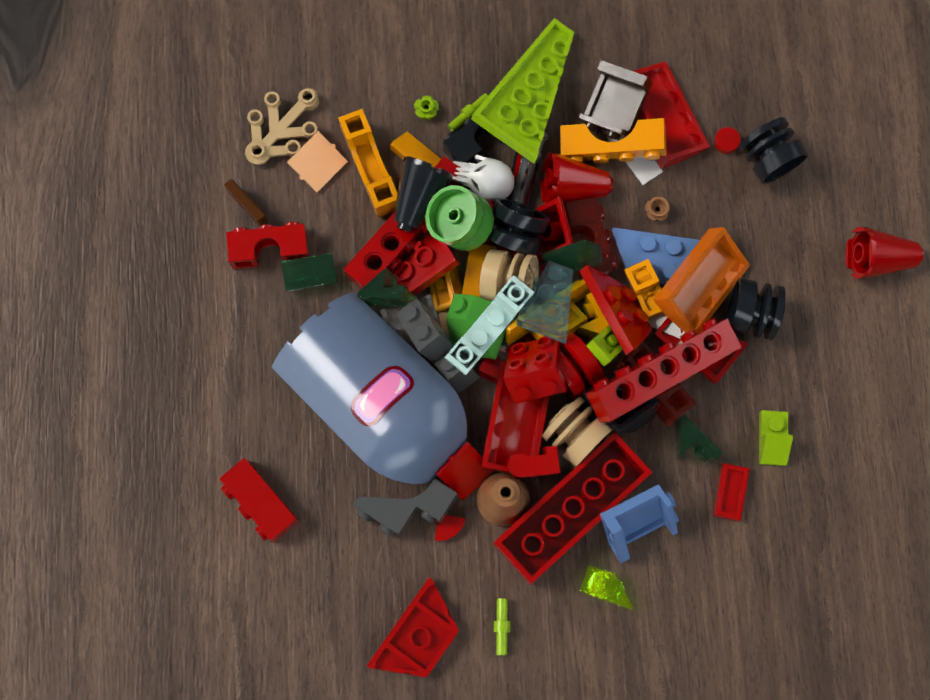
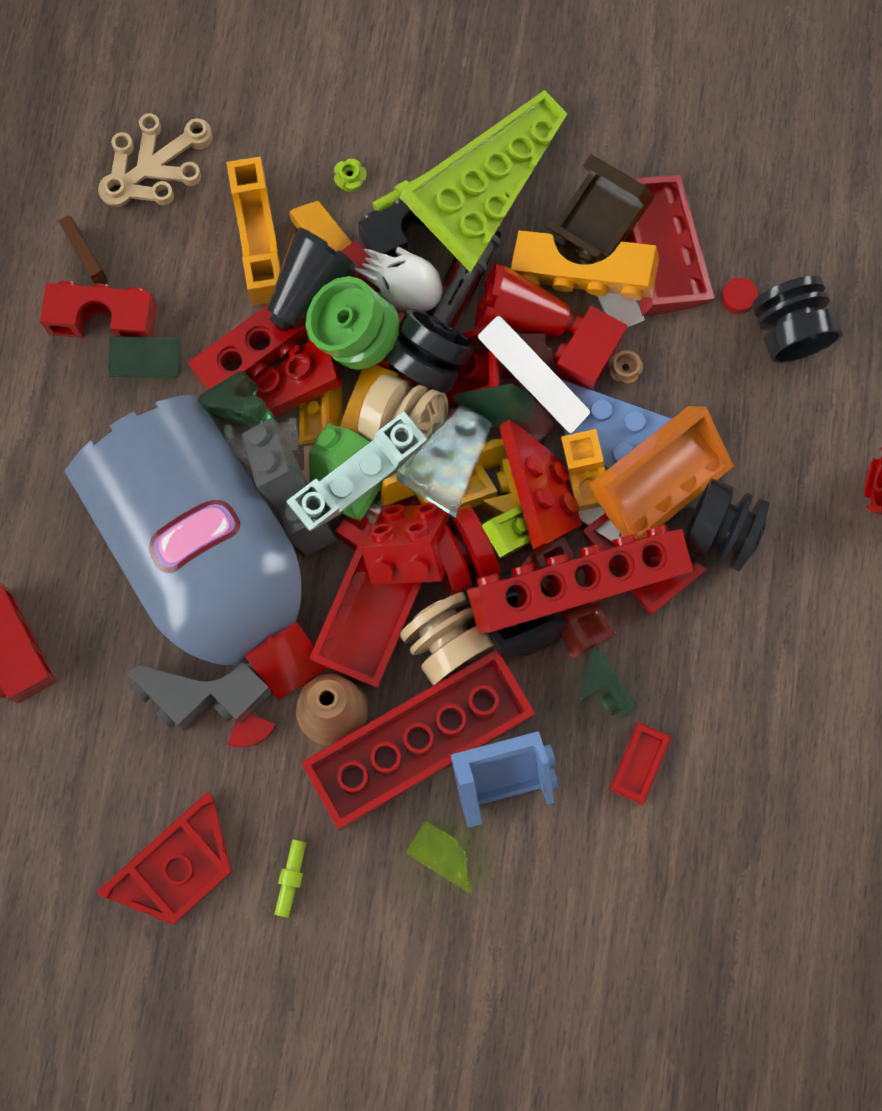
camera: 10 degrees right, 0 degrees up
(317, 161) = (189, 216): light nougat piece -> none
(527, 466) = (365, 670): red leg -> none
(595, 228) = (534, 374): none -> white sticker
(630, 200) = (589, 349): none -> red brick
(774, 438) = (714, 703): lime slope -> none

